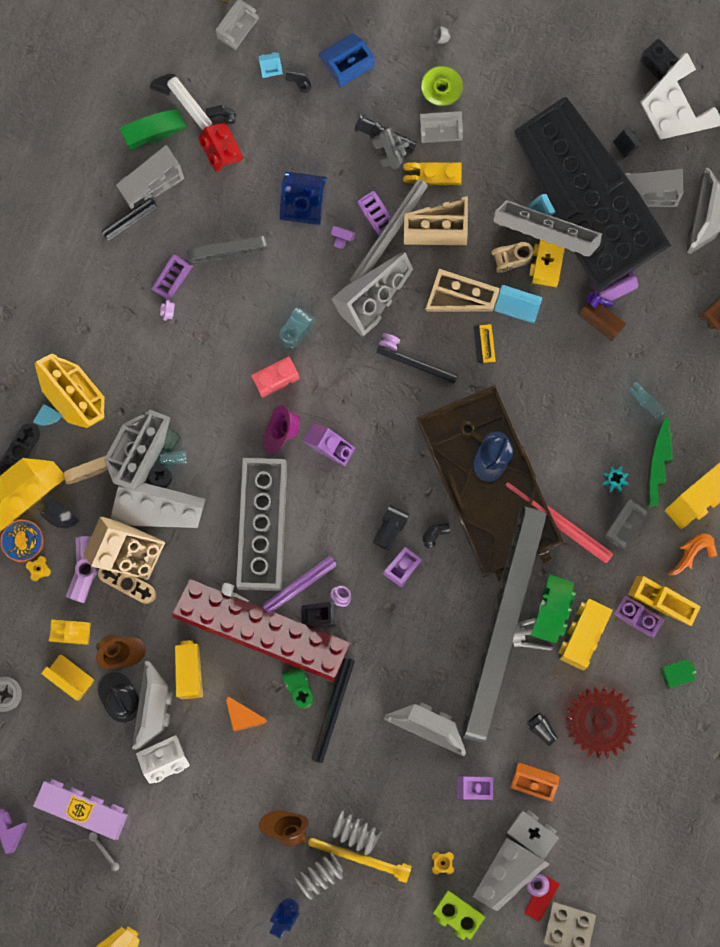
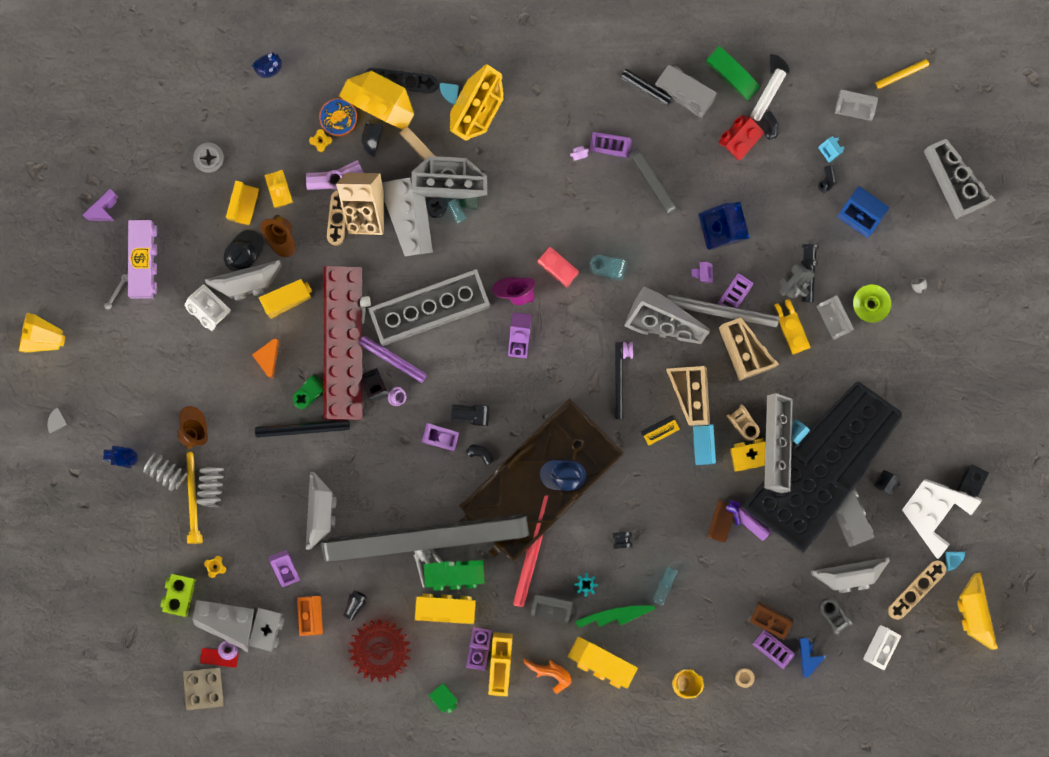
camera: 65 degrees right, 5 degrees up
(583, 424) = (622, 540): none -> black wheel

